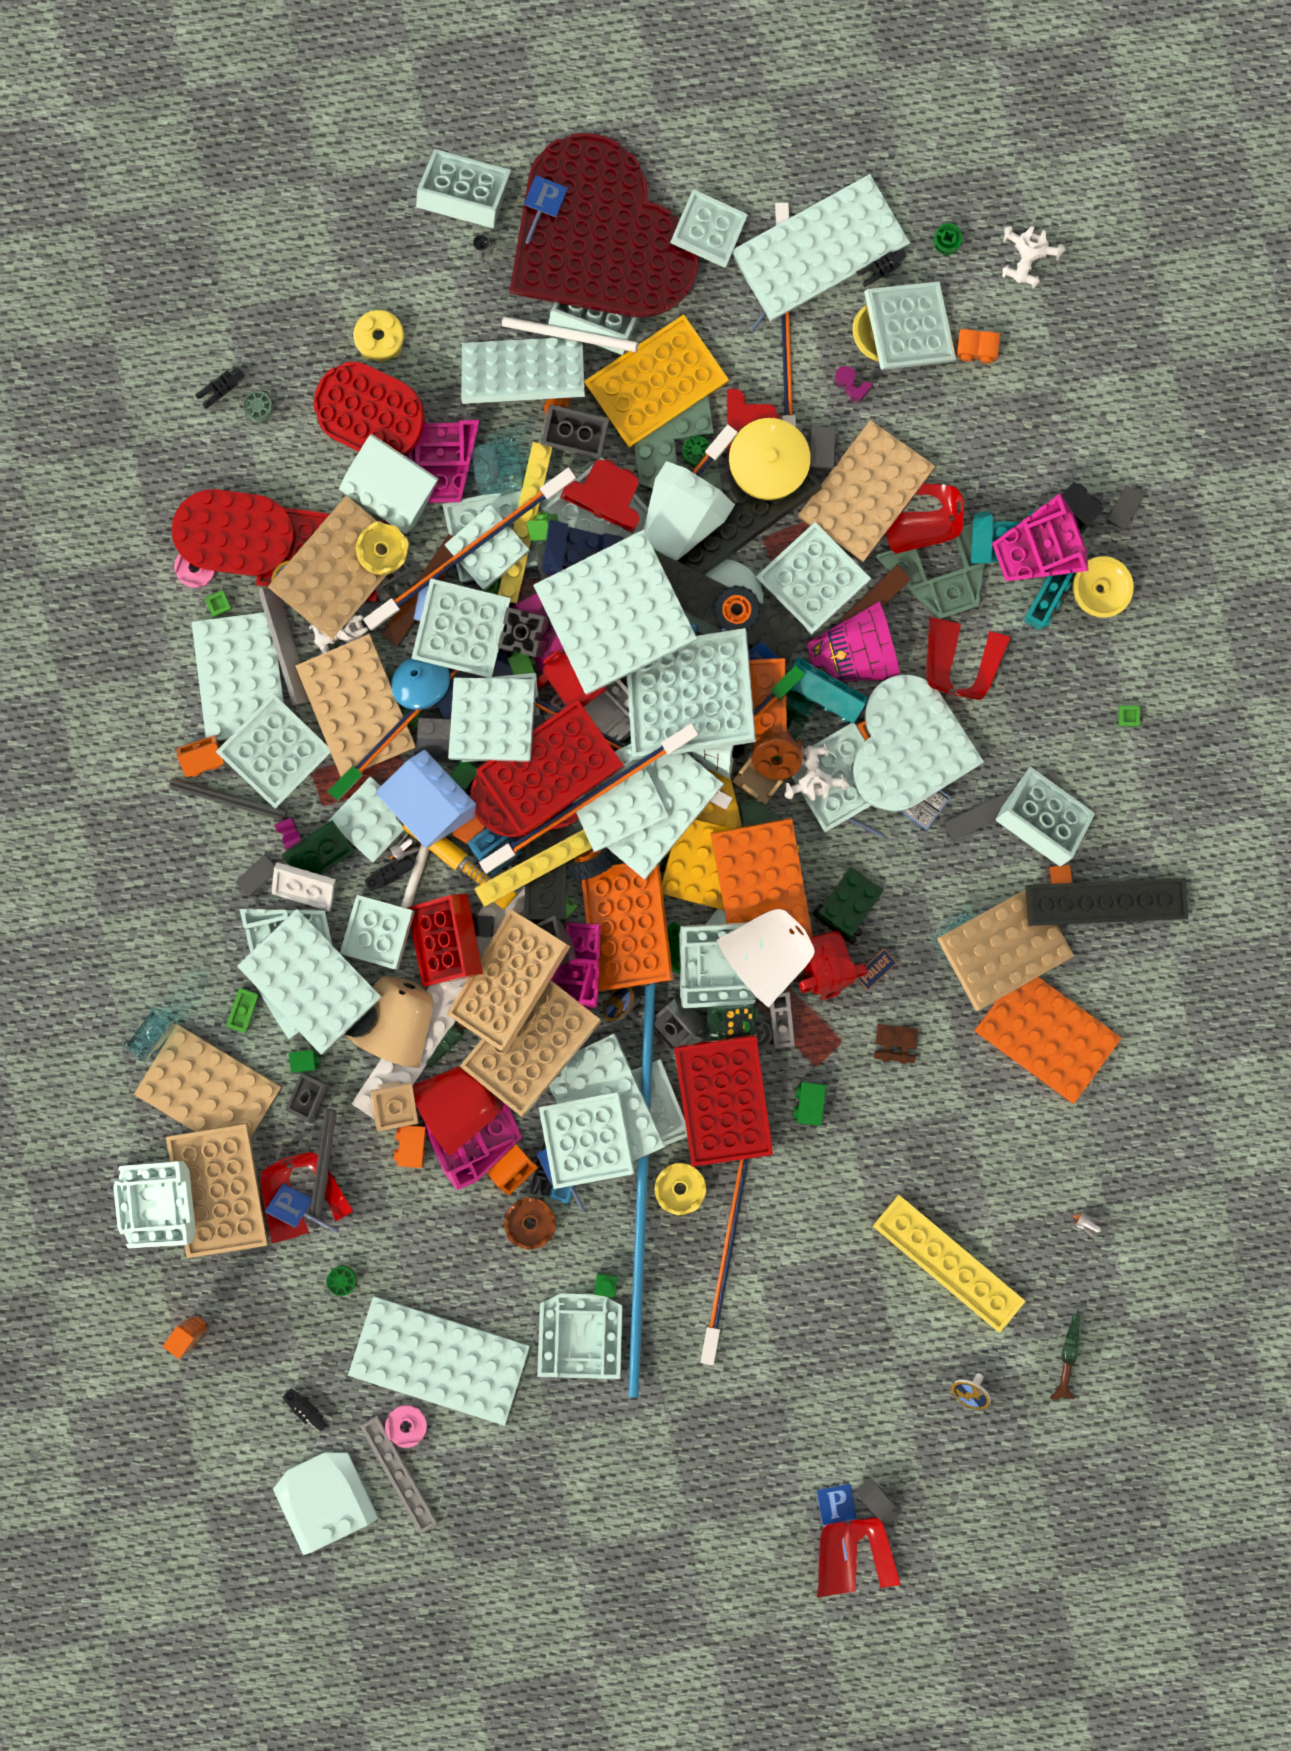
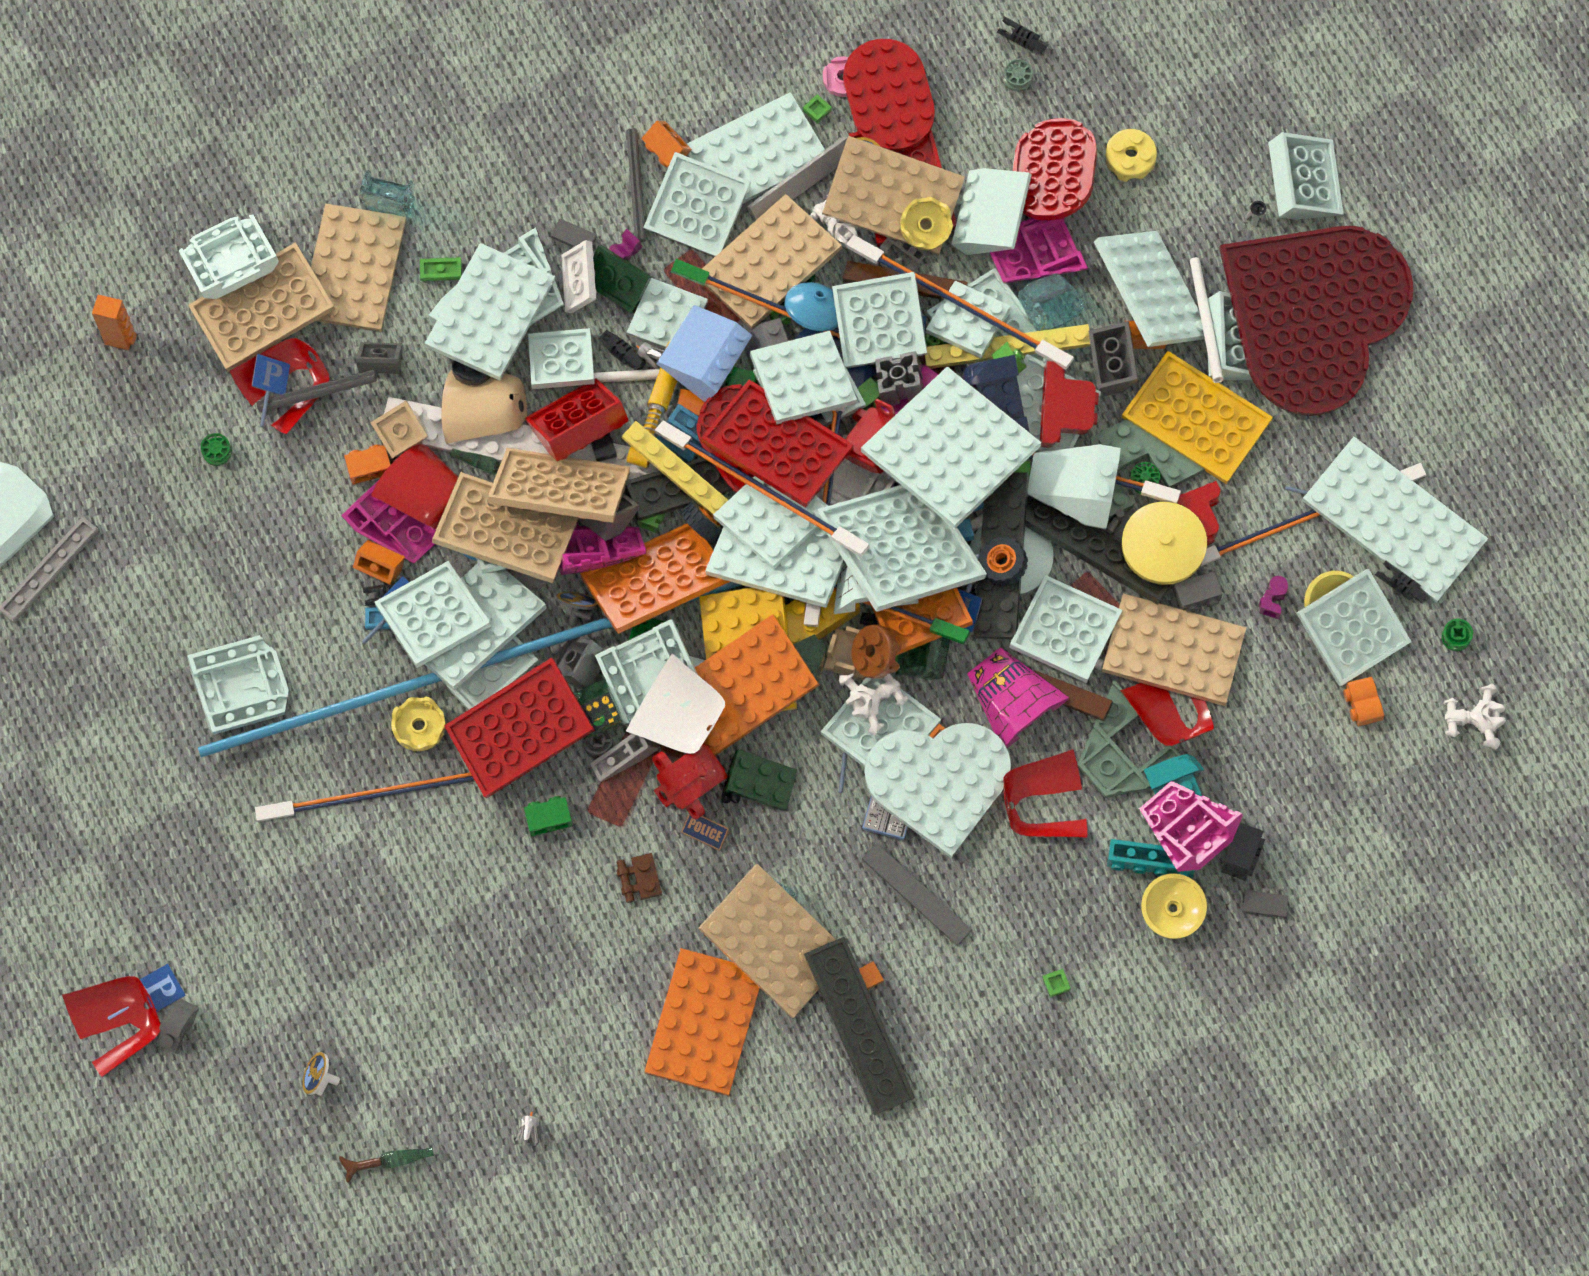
camera: 70 degrees right, 15 degrees down
(304, 1061) = (412, 339): green brick -> none
(304, 1409) = (80, 461): black hinge -> none
(397, 1418) = (101, 547): bright pink plate -> none
(439, 1360) = (171, 566): light aqua plate -> none
(517, 1231) = (333, 584): dark orange plate -> none
(545, 198) = (1325, 247): blue piece -> none
(605, 1284) = (299, 689): green brick -> none
(709, 228) = (1365, 408): light aqua plate -> none
(829, 692) = (960, 681): teal brick -> none
(948, 1263) = (438, 1008): light yellow plate -> none
(1045, 817) = (921, 936): light aqua slope -> none

